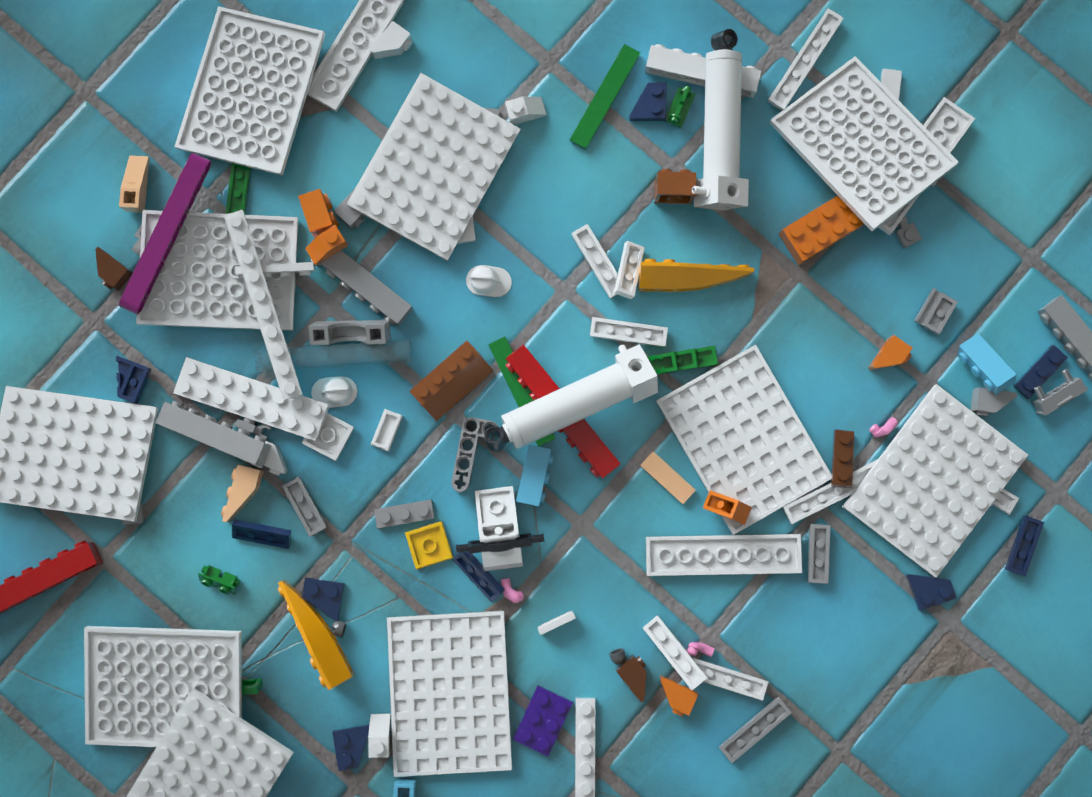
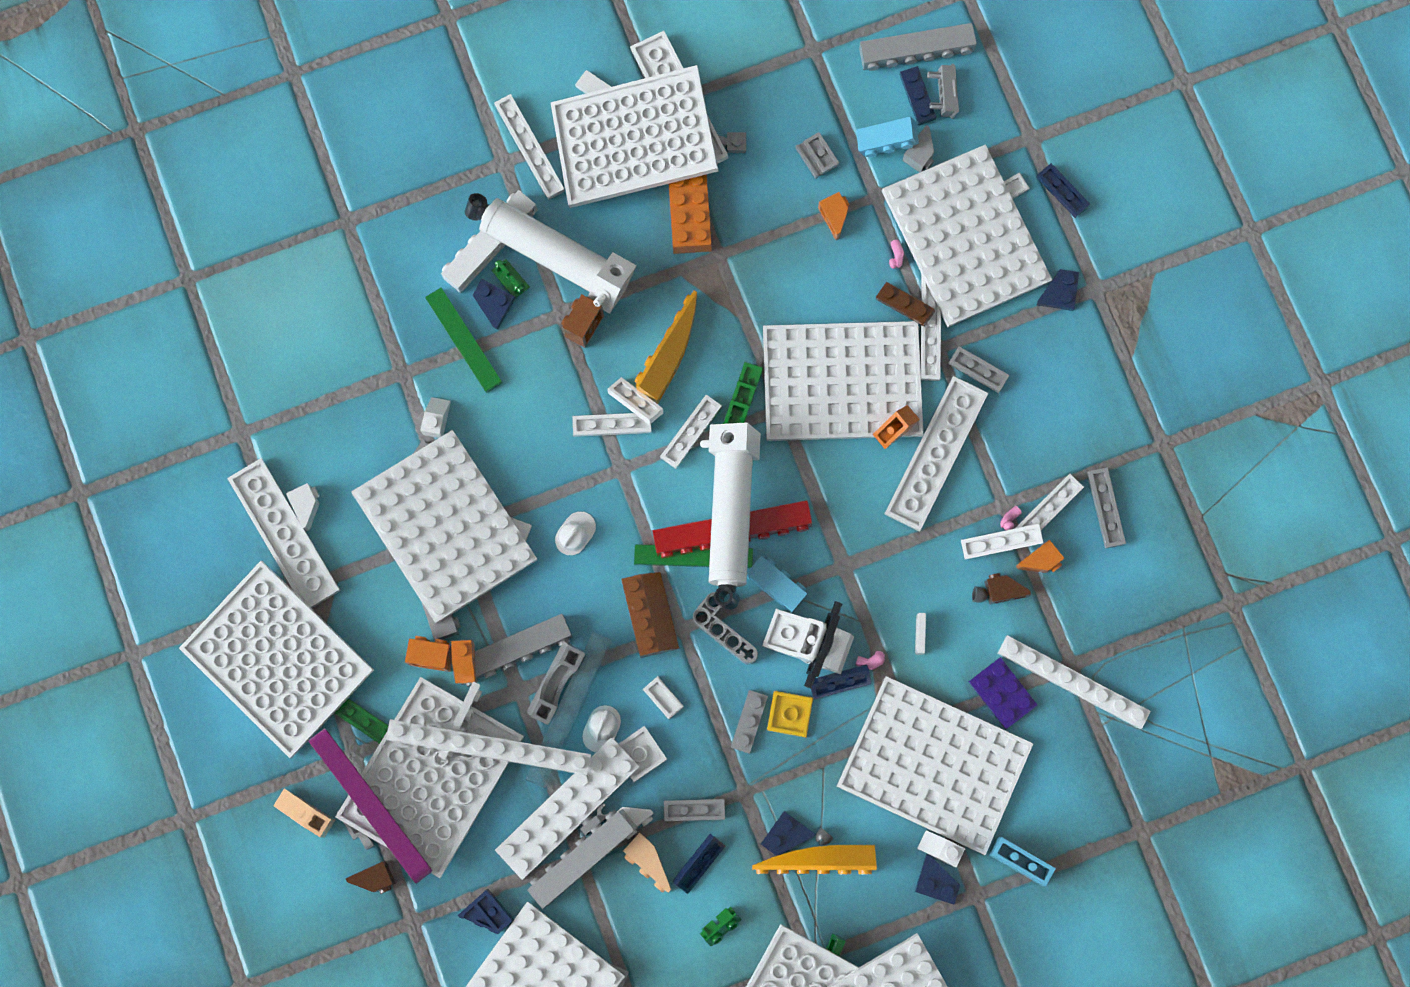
camera: 55 degrees left, 5 degrees down
(667, 477) = (841, 466): light nougat tile -> none

